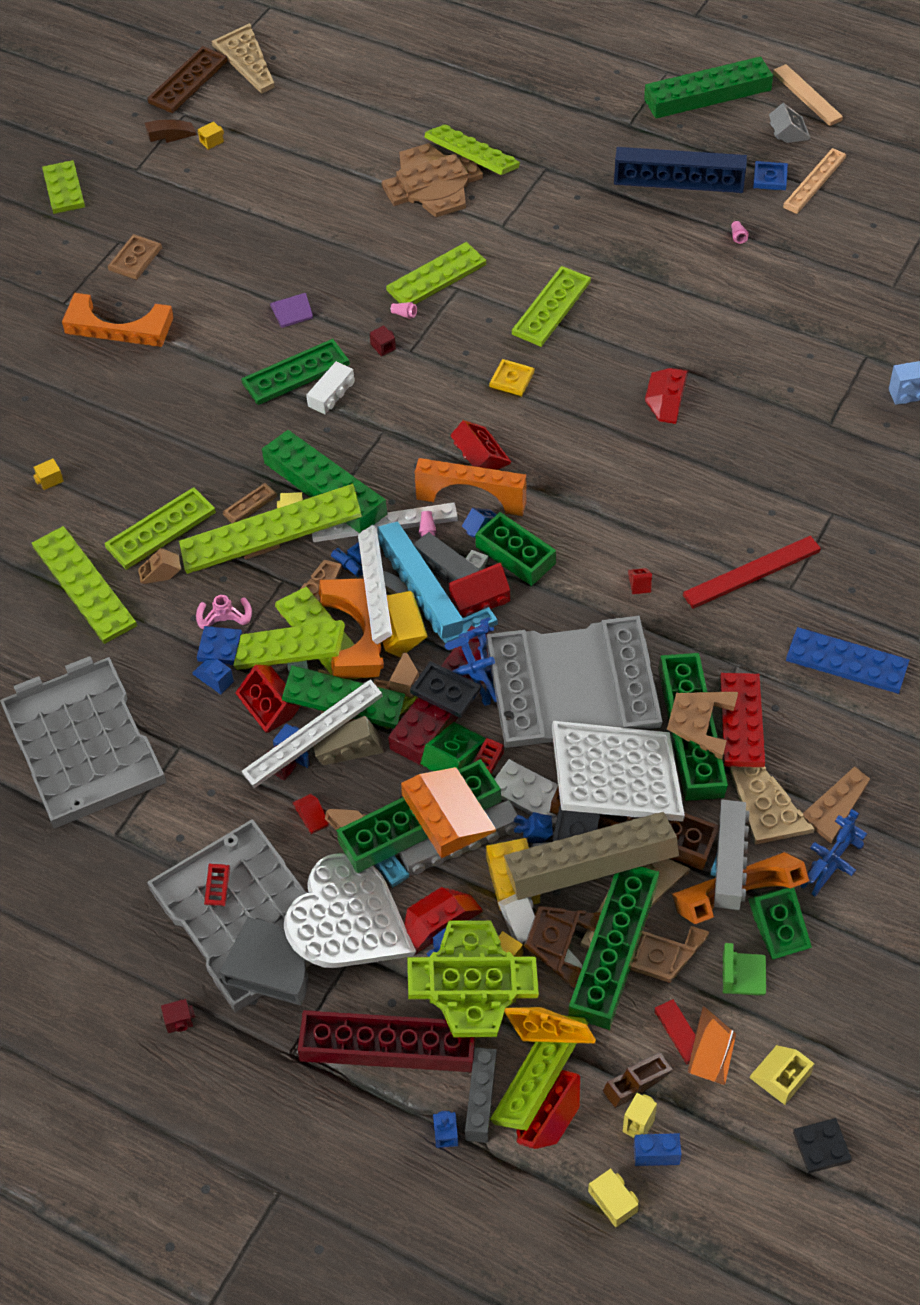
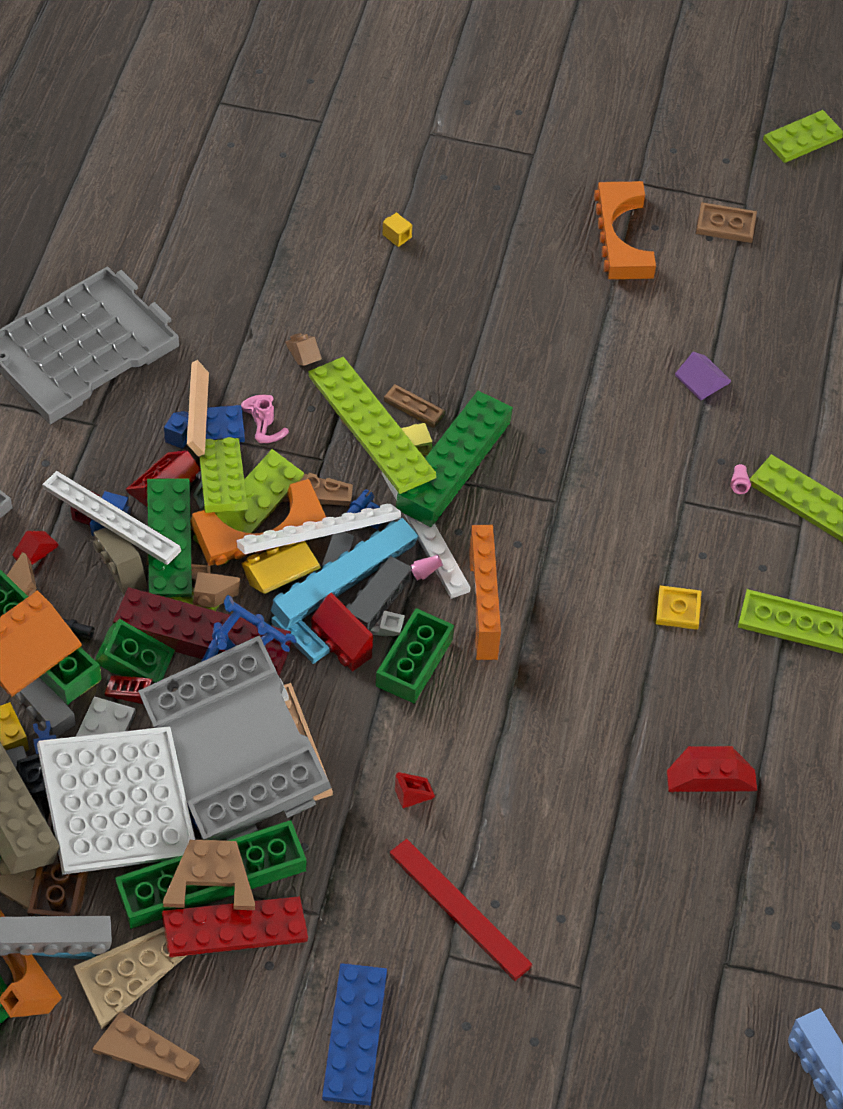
camera: 70 degrees right, 0 degrees up
(84, 585) = (269, 297): lime plate -> none
(159, 528) = (357, 337): lime plate -> none
(202, 653) = (197, 408): none -> light nougat tile
(293, 372) = (610, 400): green plate -> none
(330, 387) = (596, 436): white brick -> none
(382, 340) = (684, 468): dark red brick -> none
(445, 689) = (191, 620): black plate -> none
(477, 519) = (449, 611): blue slope -> none
(479, 446) = (556, 595): red slope -> none
(831, 859) = (64, 1048): blue piece -> none

